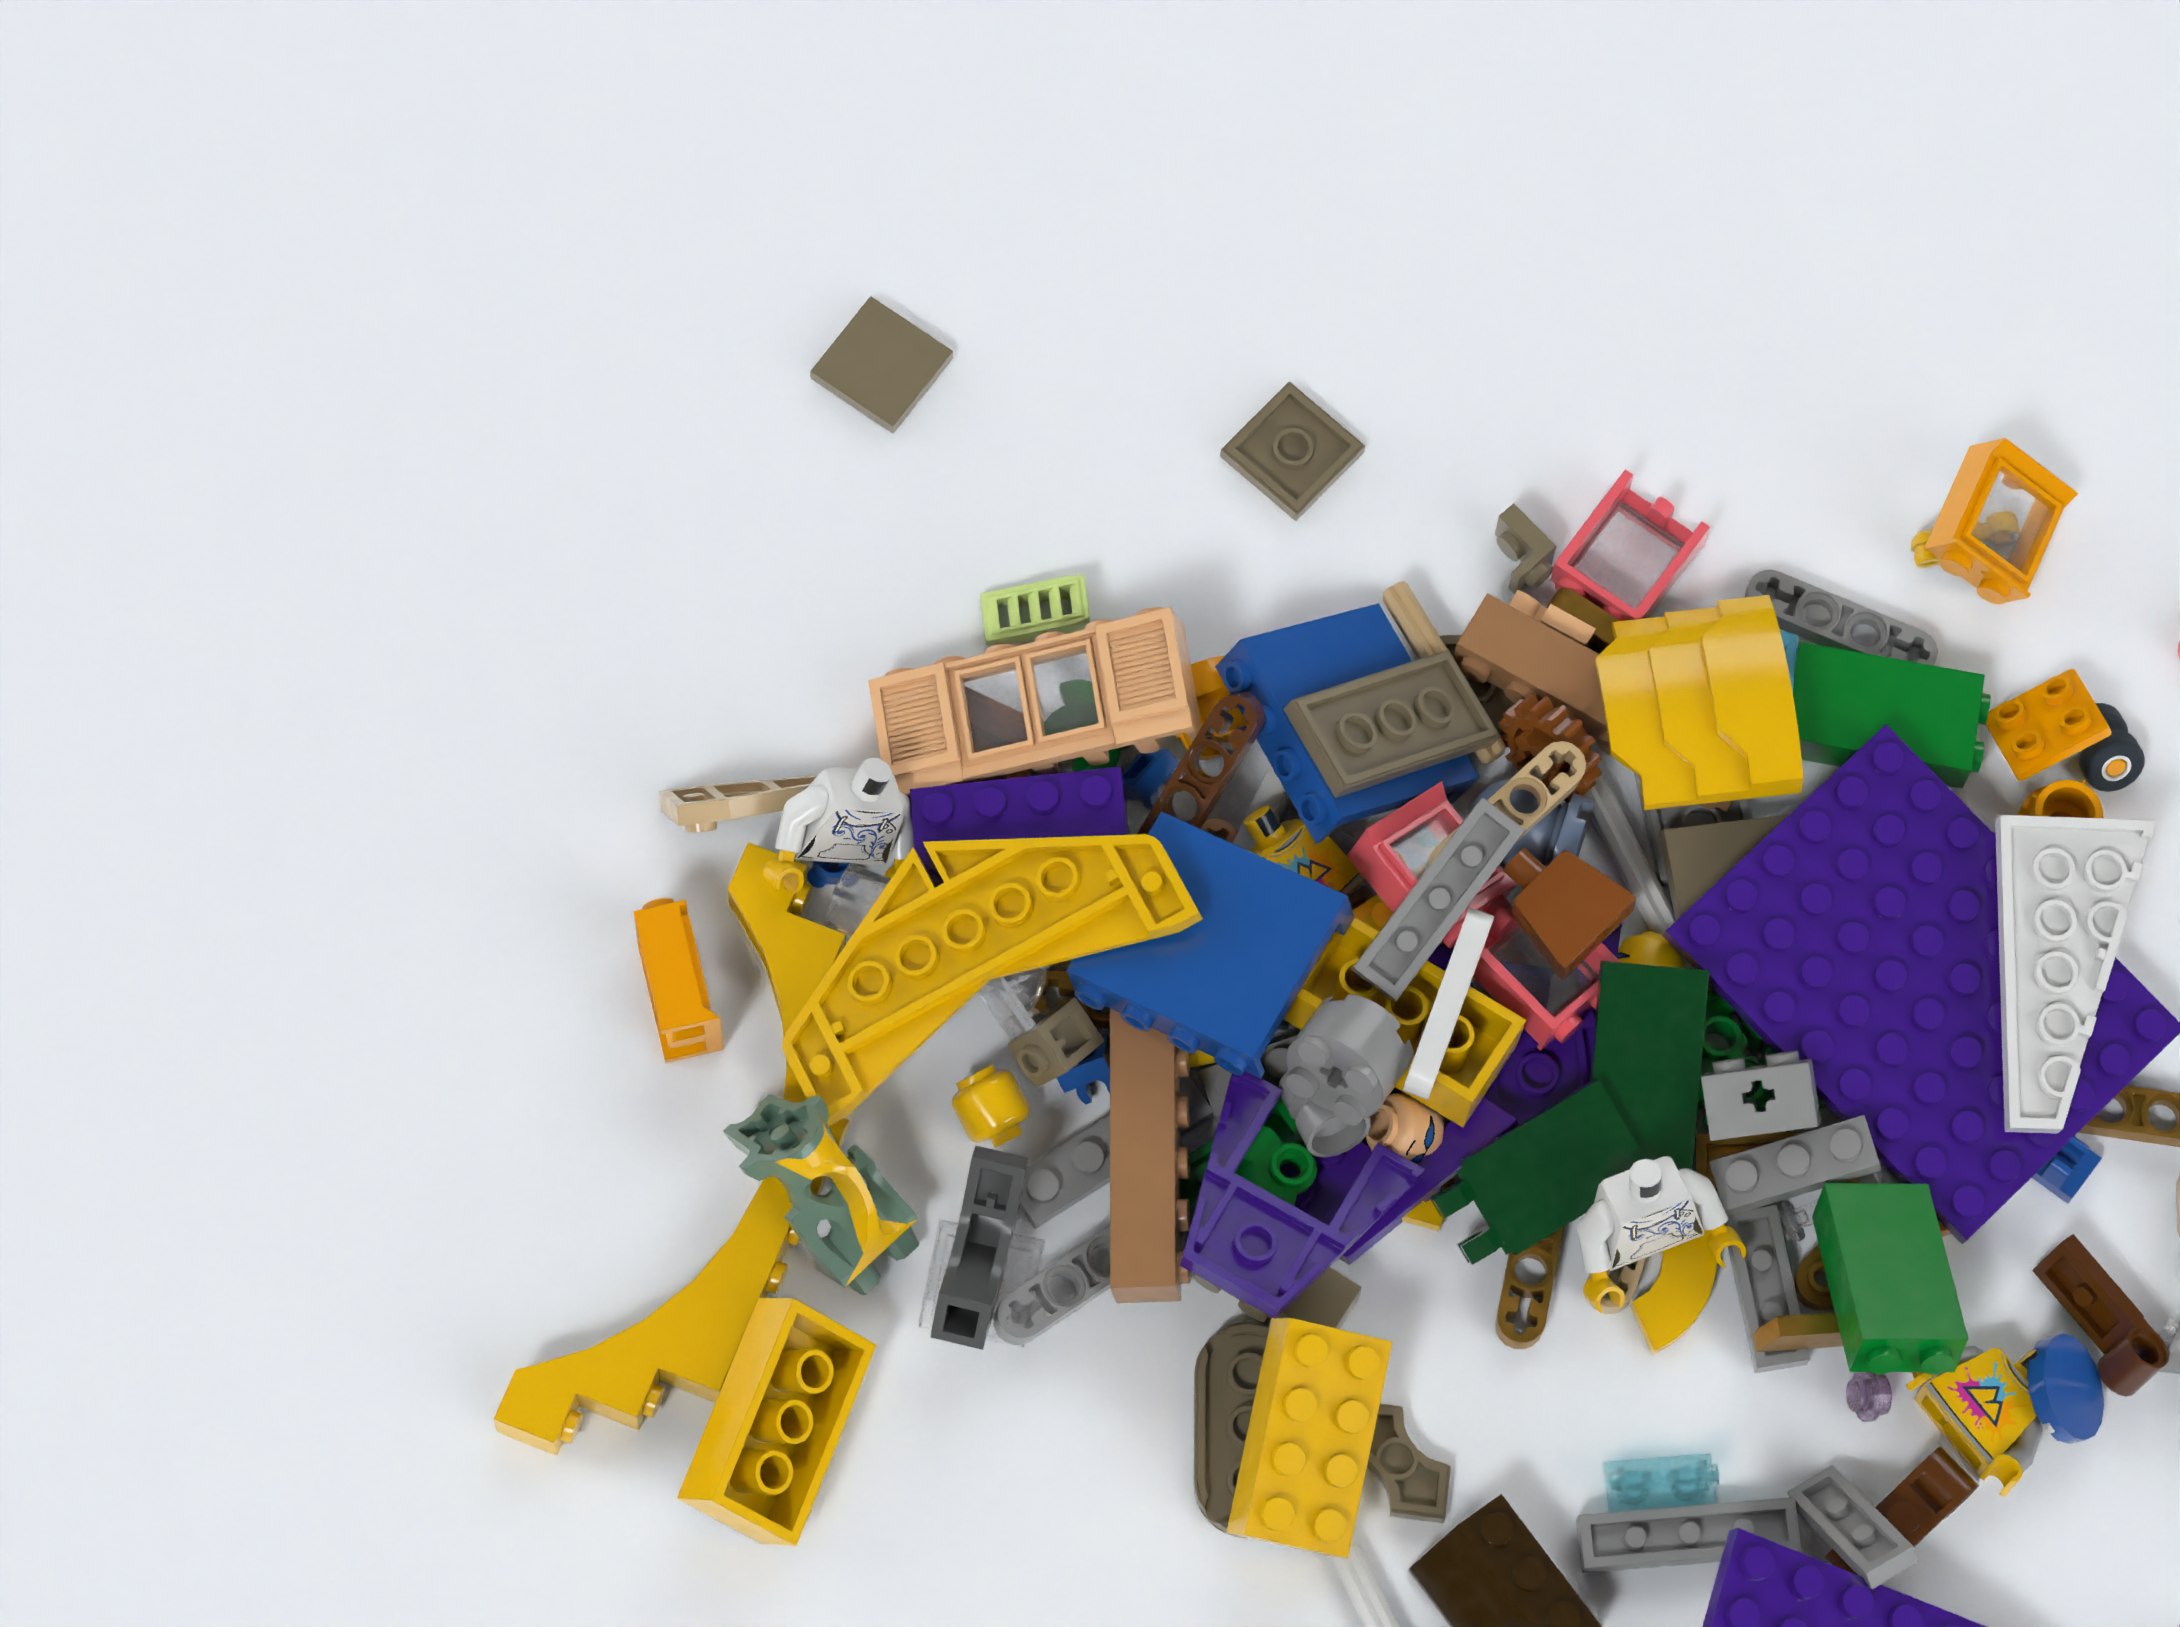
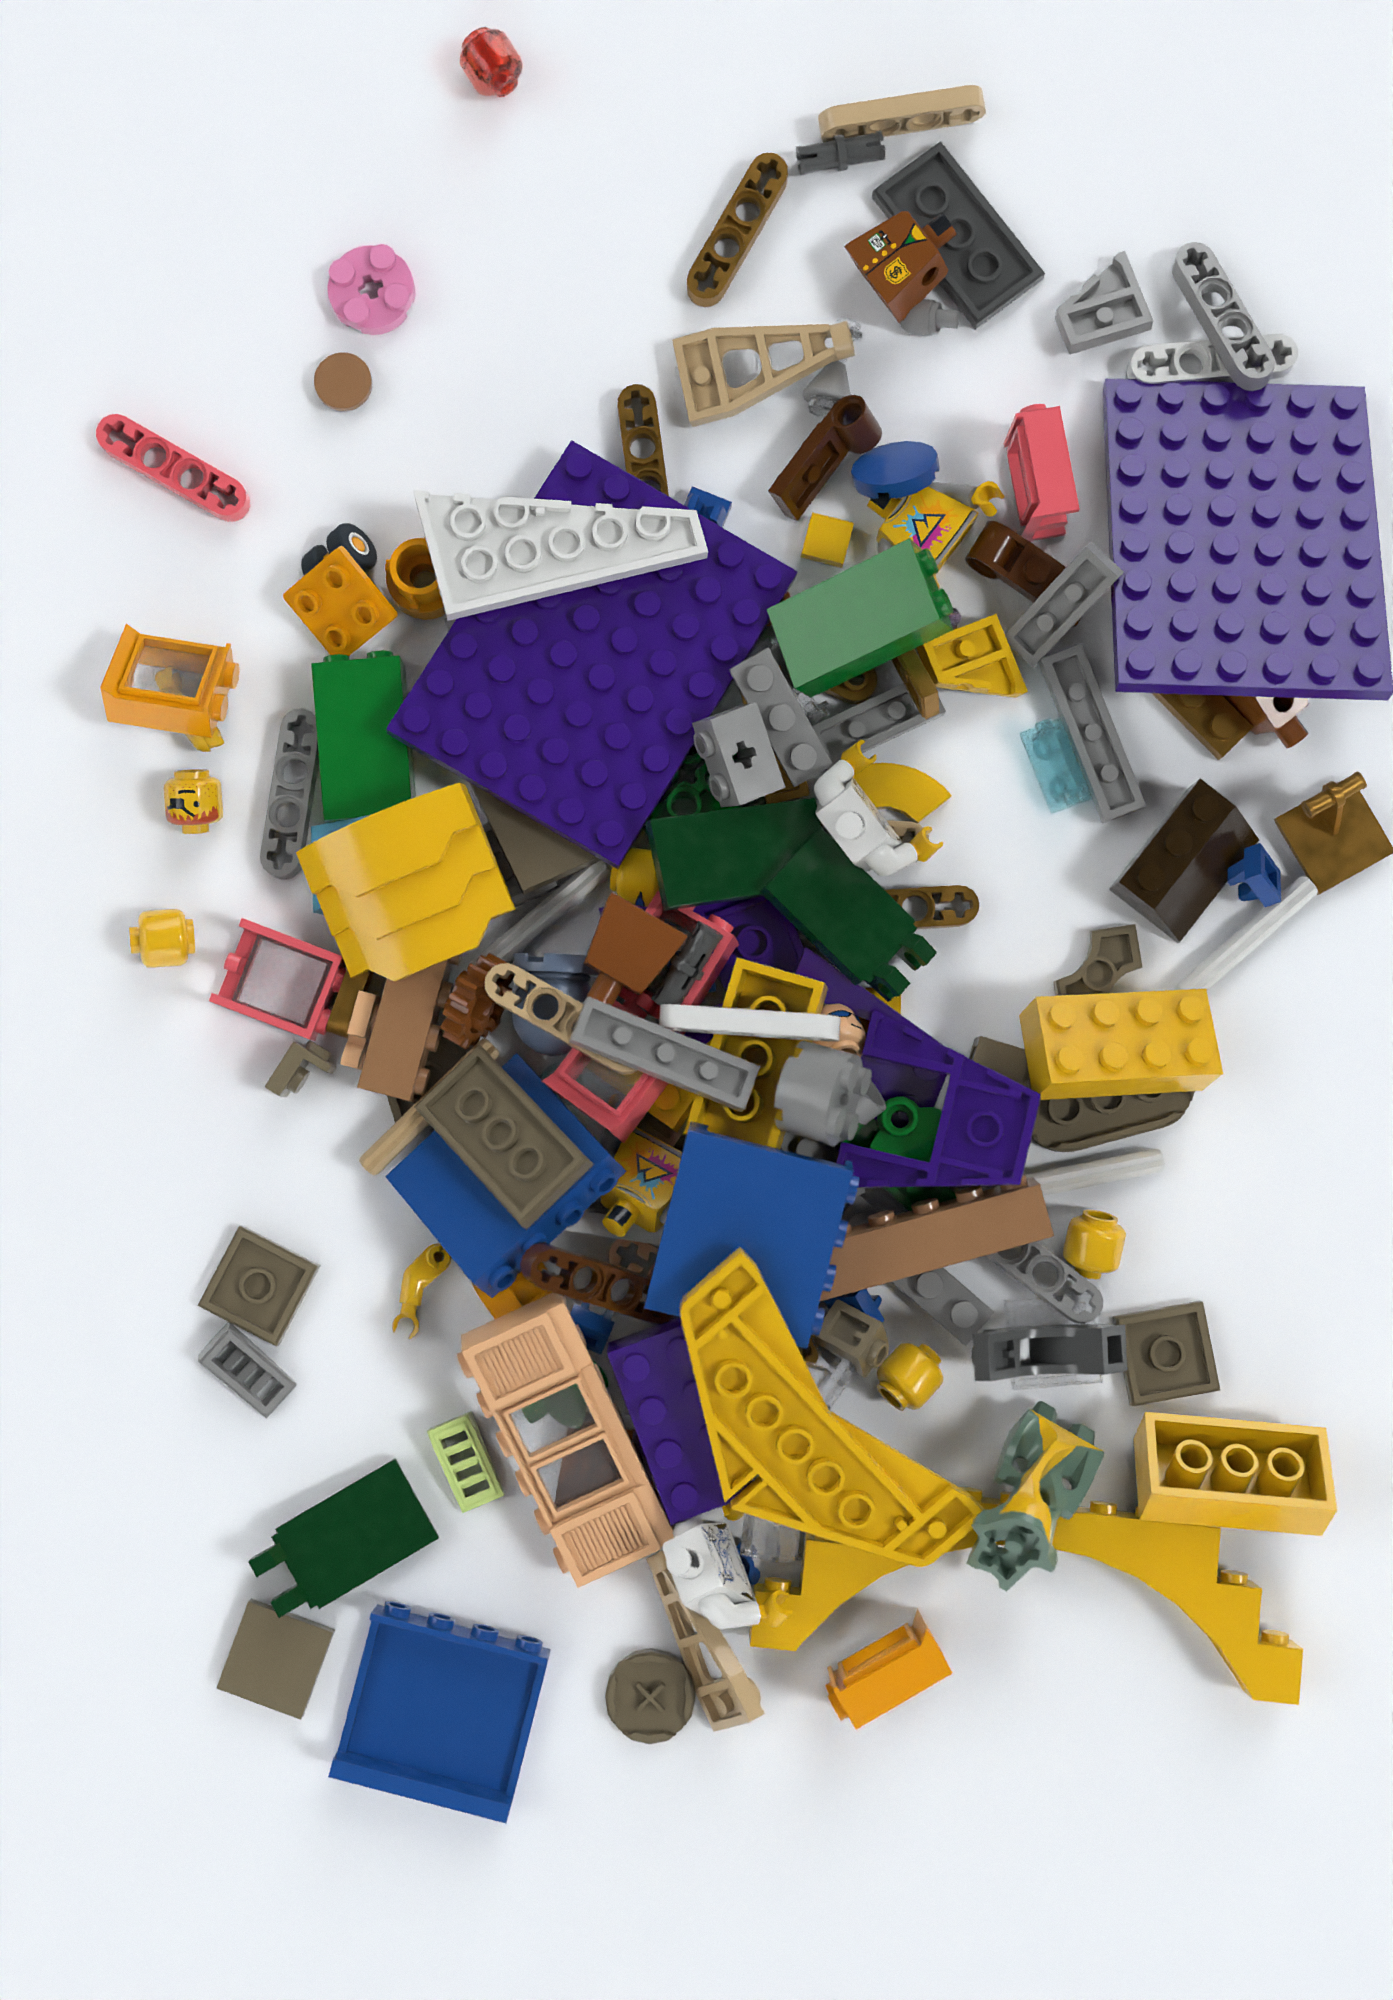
camera: 100 degrees left, 15 degrees up
(719, 735) = (650, 1696): none -> dark tan tile
(773, 517) = (441, 1711): none -> blue panel
(929, 1408) = (1168, 1353): none -> dark tan tile
(989, 467) = (347, 1539): none -> dark green tile
(1082, 1355) = (1094, 1243): none -> yellow head
(1163, 1384) = (1099, 1171): none -> white axle
(1207, 389) = (221, 1370): none -> light grey slope
(1252, 612) = (415, 1278): none -> yellow arm
(1530, 968) = (687, 965): none -> dark grey pin
(1709, 446) = (163, 938): none -> yellow head
(1812, 1418) = (974, 660): none -> yellow wing
(1858, 517) = (193, 800): none -> yellow head
(2000, 1298) = (827, 540): none -> yellow tile
(2020, 1553) = (1041, 472): none -> coral window

